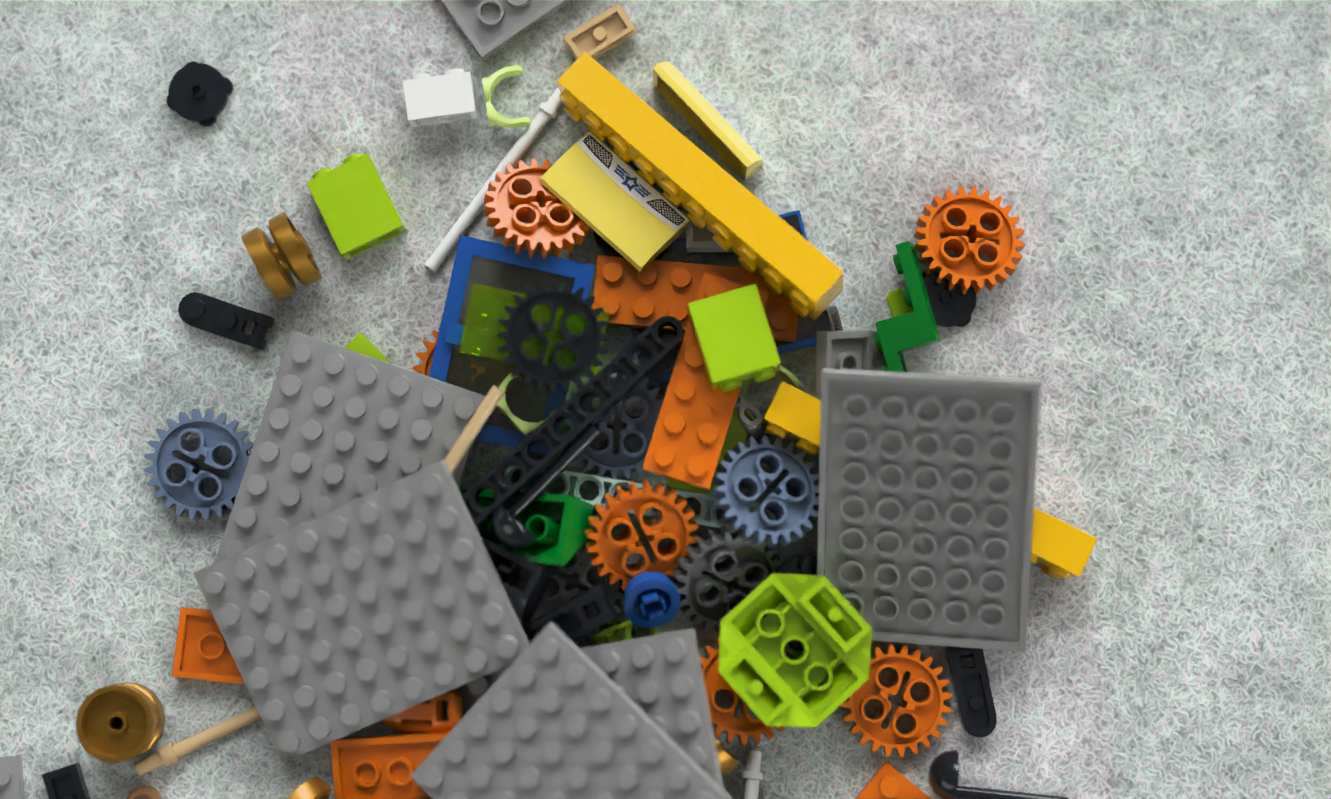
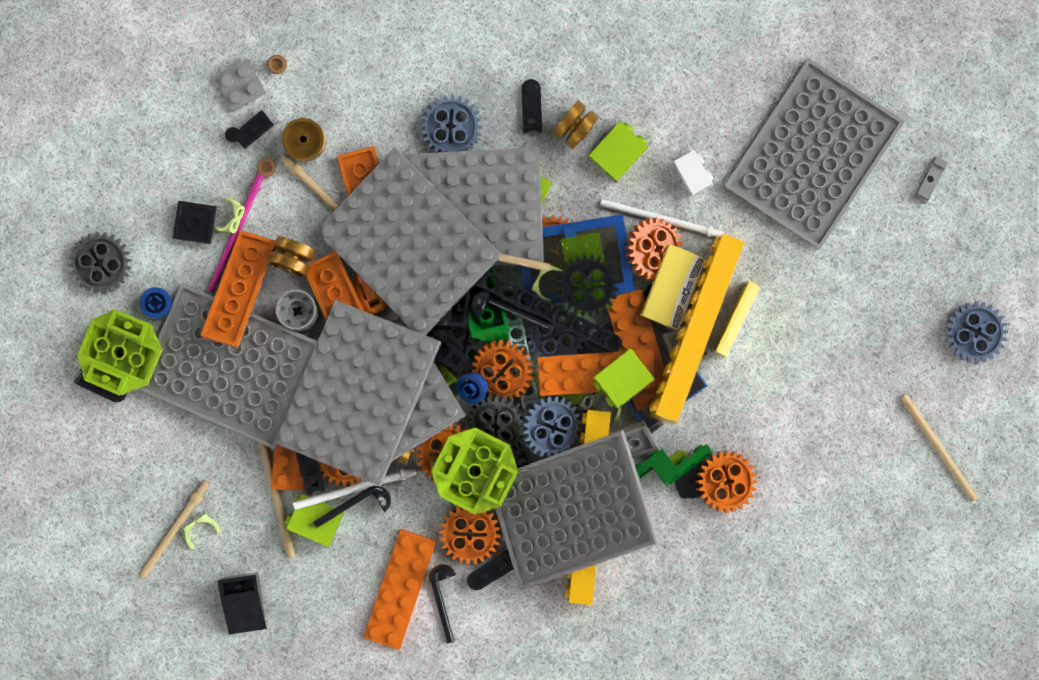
camera: 75 degrees right, 5 degrees up
(199, 93) = (646, 42): black piece -> none
(489, 85) = (712, 194): yellowish green cap -> none
(600, 33) = (761, 243): tan plate -> none

